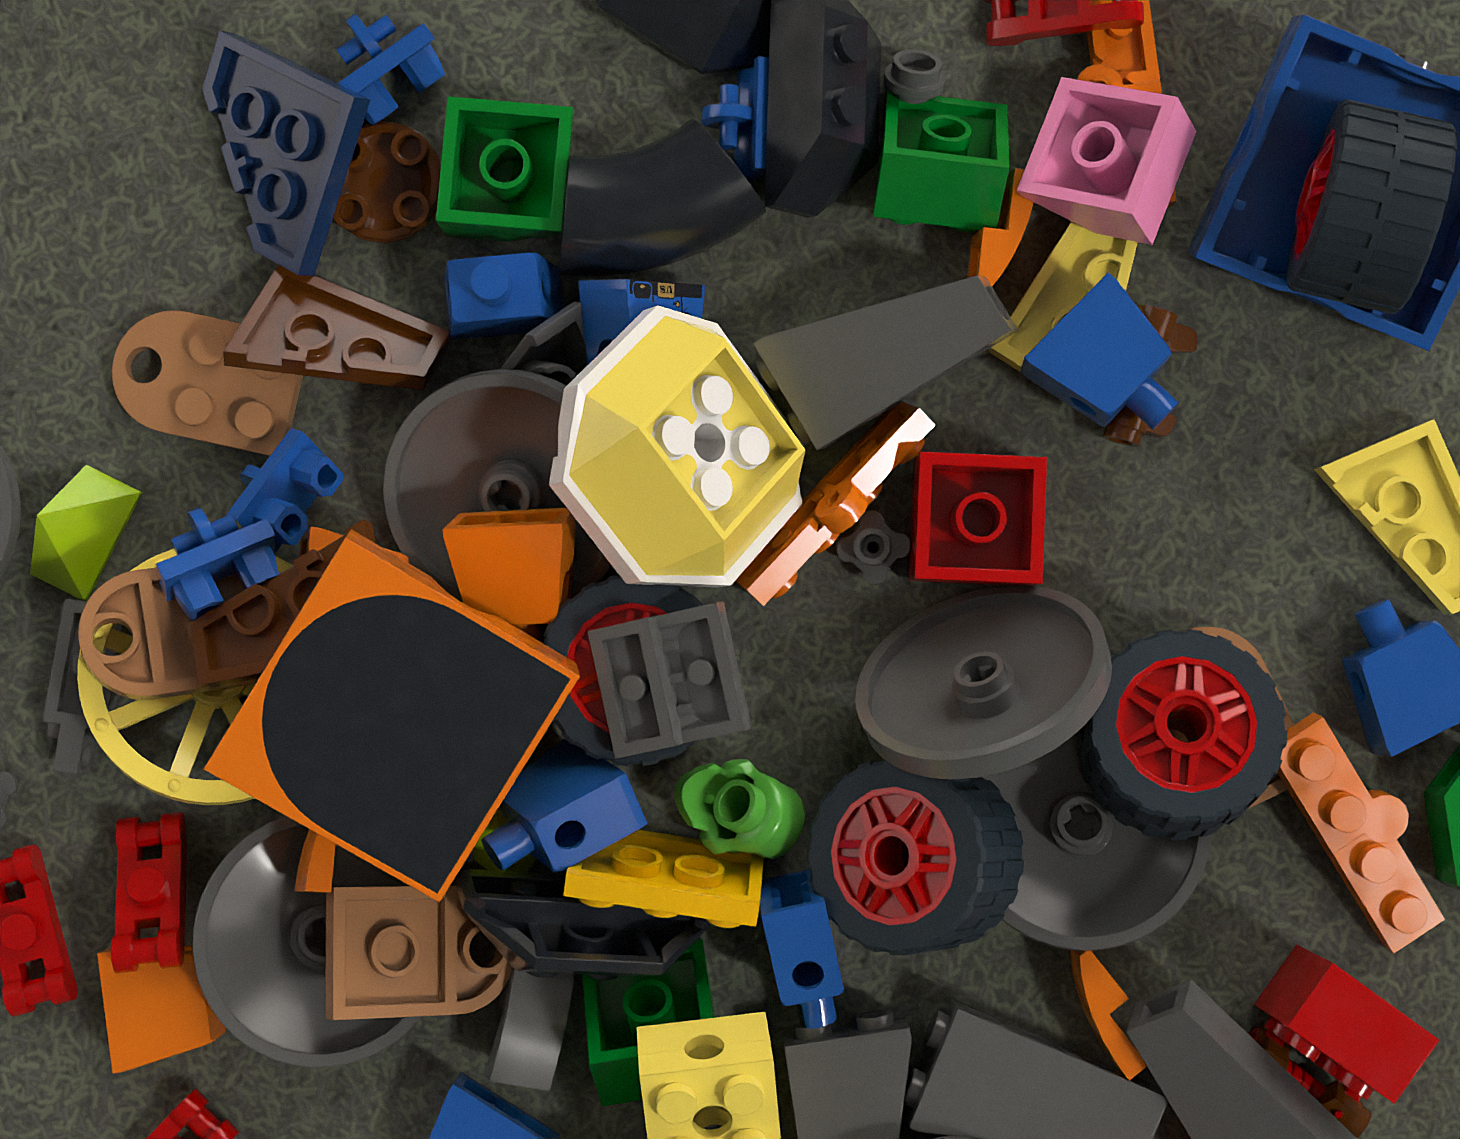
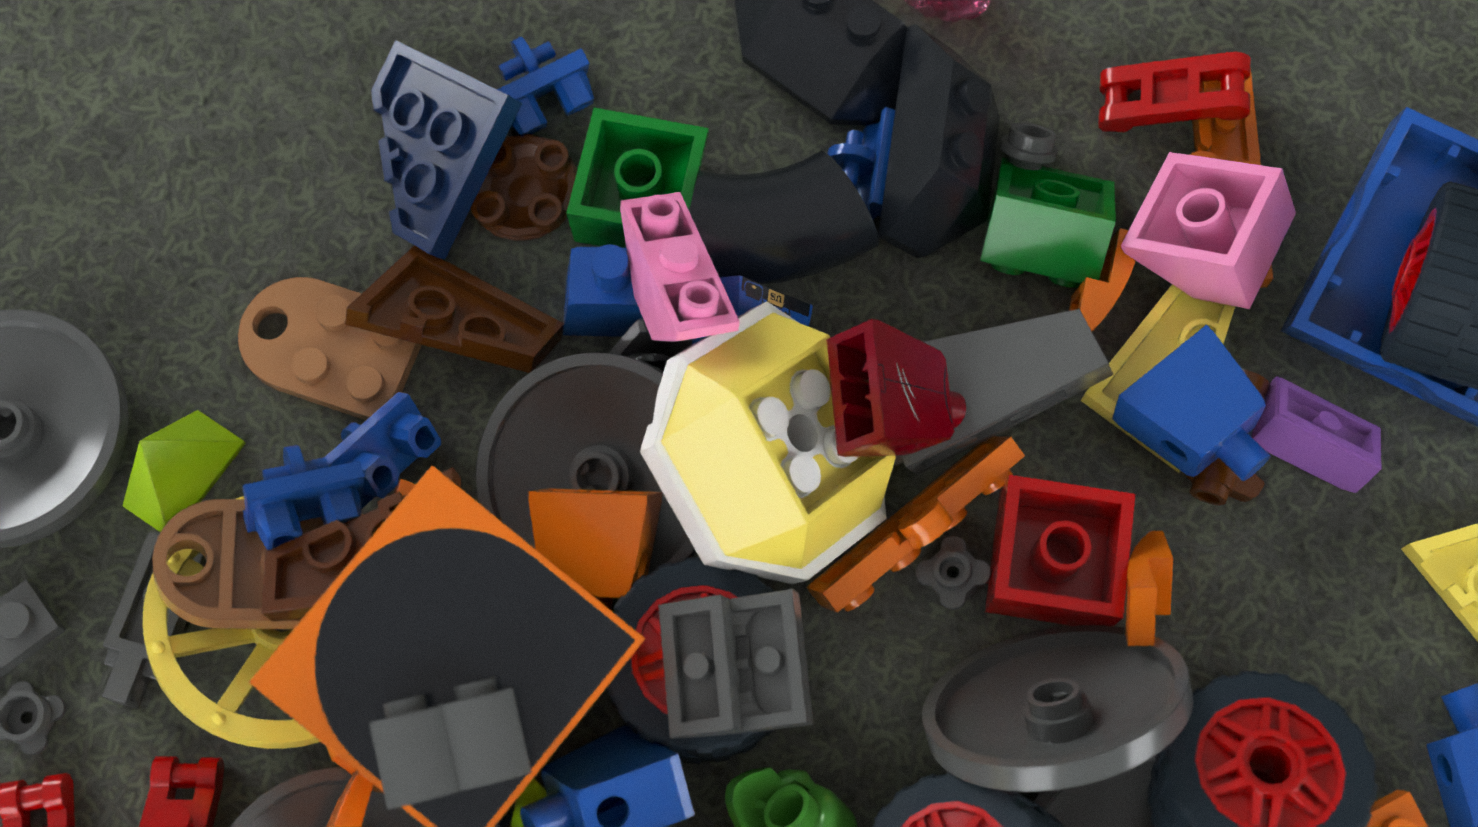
camera: 10 degrees right, 15 degrees down
(408, 805) = (449, 745): none -> dark grey brick
(558, 288) = (673, 271): none -> bright pink slope
(792, 391) = (889, 392): none -> dark red torso
(1064, 547) = (1148, 588): none -> orange slope
(1228, 363) = (1318, 436): none -> medium lavender slope

